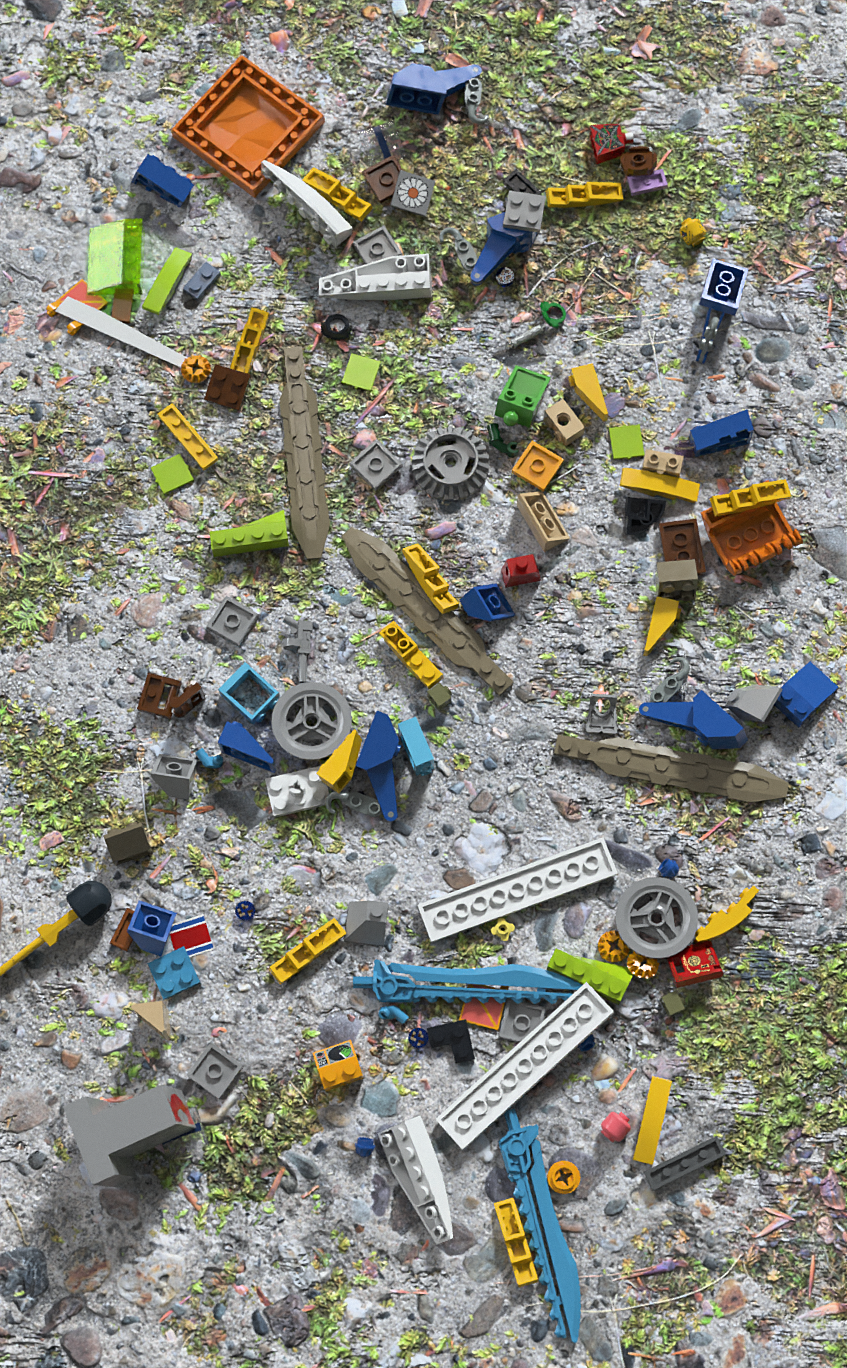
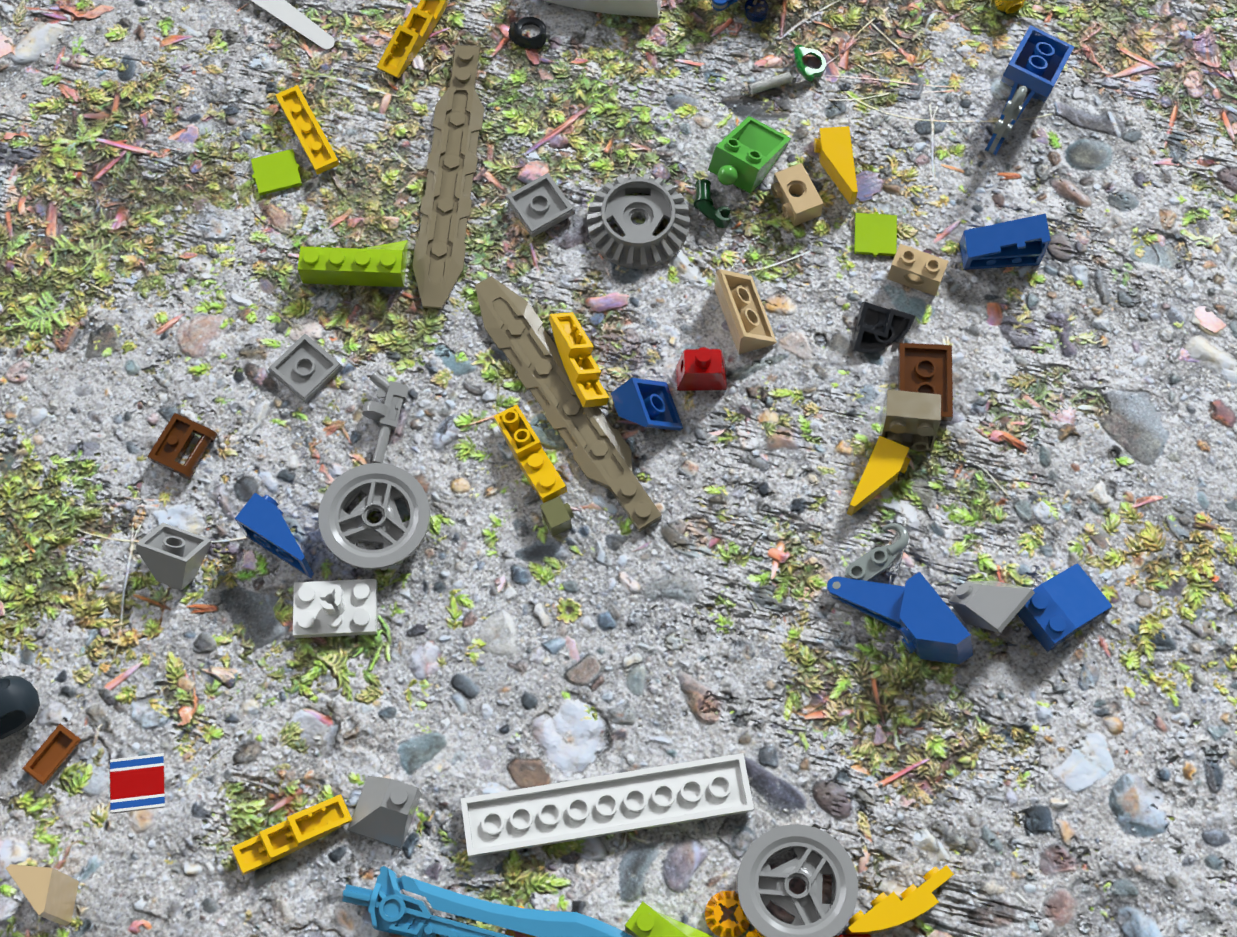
camera: 10 degrees right, 5 degrees down
(127, 843) = (82, 634): dark tan slope -> none
(151, 927) = (82, 757): blue slope -> none
(174, 973) = (99, 829): dark azure plate -> none
(188, 700) = (221, 451): reddish brown plate -> none
(200, 374) = (342, 59): light orange gear -> none
(209, 761) = (225, 545): dark azure arm -> none
(227, 387) = (373, 79): reddish brown plate -> none
(236, 680) = (287, 445): medium azure window -> none
(245, 911) = (221, 760): clear blue tile -> none
(341, 765) = (398, 583): yellow slope -> none
(361, 372) = (548, 91): lime piece -> none
(376, 759) = (449, 581): blue slope -> none
(416, 746) = (507, 576): medium azure window -> none
(501, 923) = (574, 865): light yellow plate -> none
(537, 466) = (751, 242): light orange plate -> none
(602, 722) = (771, 593): light grey piece -> none
(659, 484) = (909, 293): yellow slope -> none
(669, 868) = (828, 816): blue plate -> none
(675, 768) = (866, 676): dark tan plate -> none
(684, 448) = (953, 254): clear purple plate -> none
(749, 536) = (1021, 370): orange slope -> none
(750, 498) = (1033, 328): yellow slope -> none

